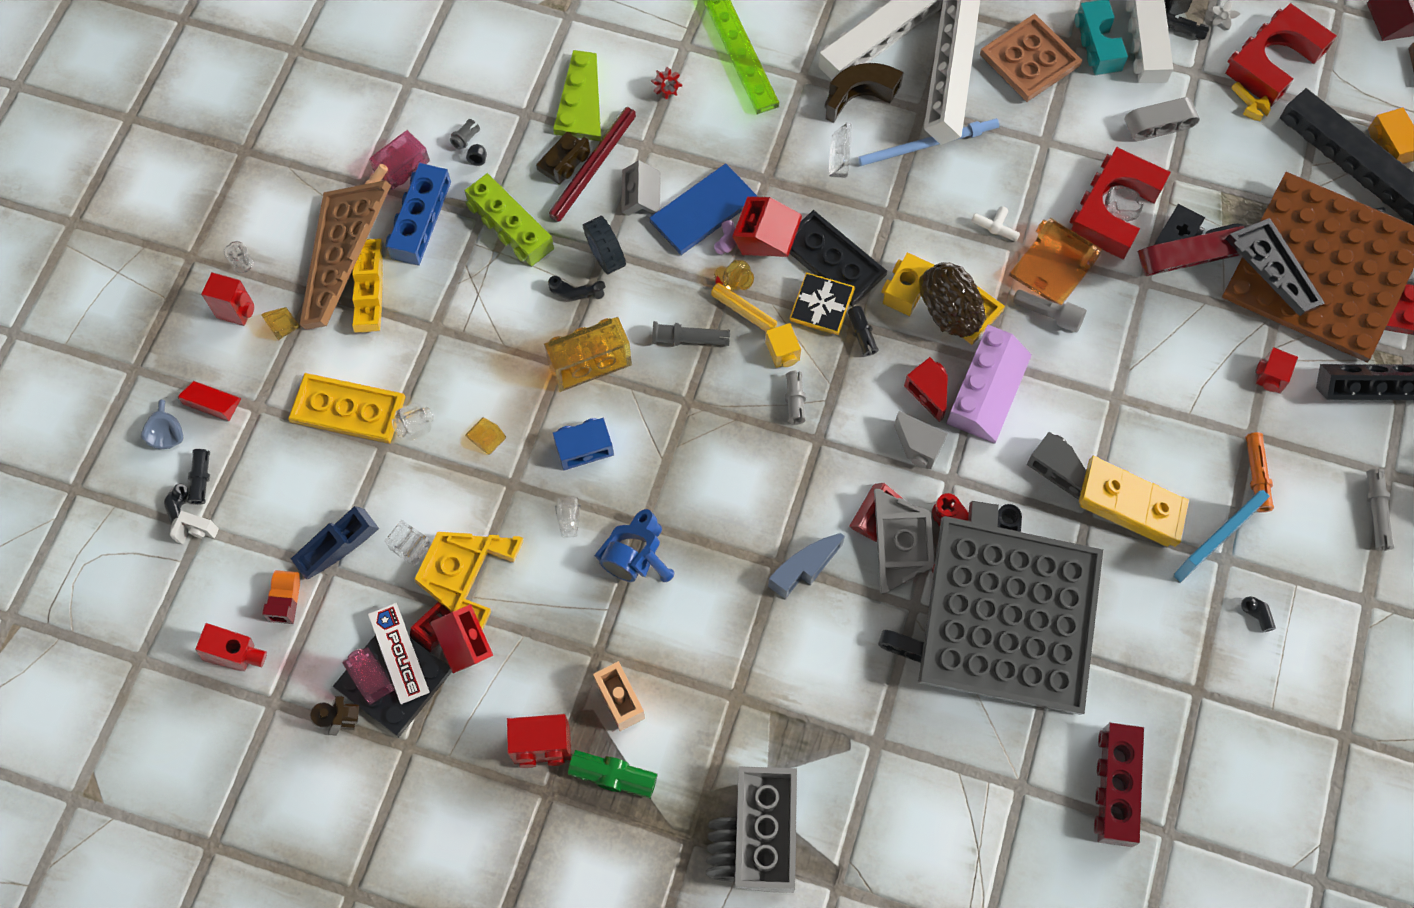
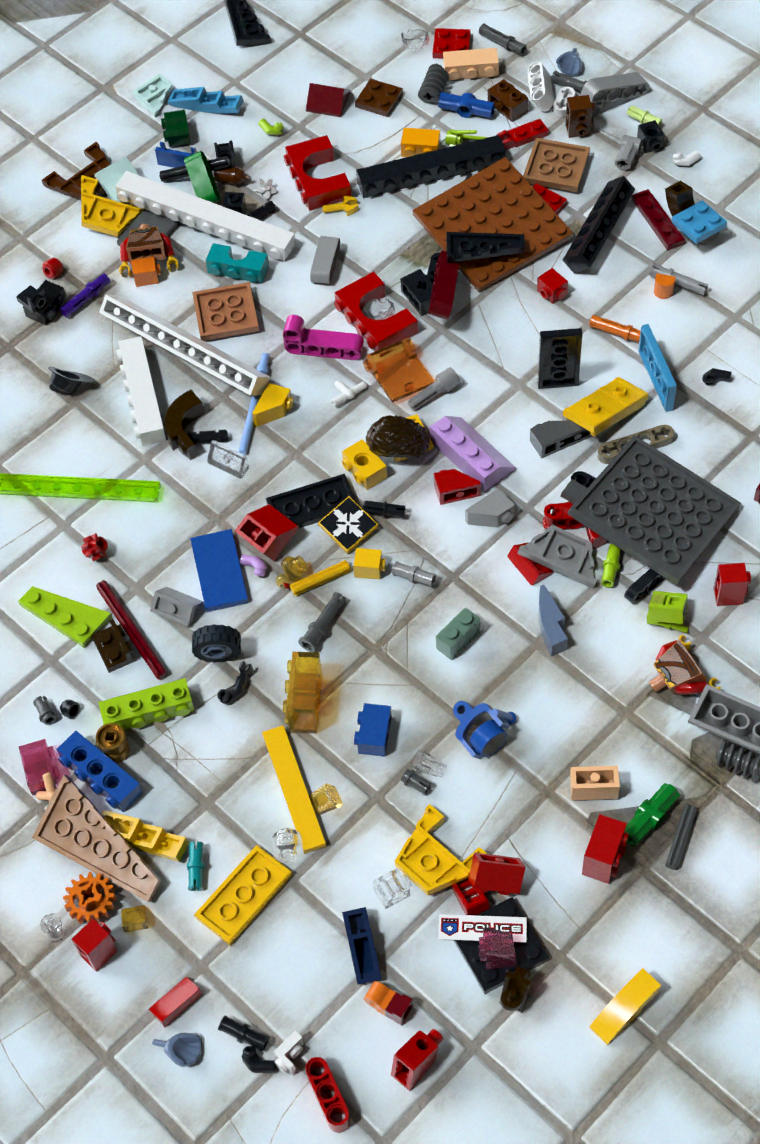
camera: 60 degrees left, 10 degrees down
(149, 588) = (328, 1106): none -> red beam
(279, 271) = (92, 907): none -> orange gear
(356, 349) = (195, 866): none -> teal pin
(371, 839) = (625, 1006): none -> yellow slope
(451, 209) = (113, 742): none -> pearl gold wheel
(482, 399) = (293, 789): none -> yellow tile
(543, 512) = (415, 781): none -> dark grey pin
(602, 819) = (681, 837): none -> dark grey axle
(740, 474) = (458, 633): none -> sand green brick
(810, 732) = (679, 670): none -> torso
(860, 119) = (208, 436): none -> black axle
(886, 688) = (668, 610): none -> lime piece
(914, 600) = (611, 566): none -> lime pin
(933, 158) = (272, 404): none -> yellow slope
(954, 745) = (731, 584): none -> red brick
(1044, 166) = (320, 342): none -> dark pink beam
(1109, 555) = (651, 434): none -> dark tan beam
(1156, 416) = (559, 358): none -> black tile
(1358, 496) = (664, 286): none -> orange brick

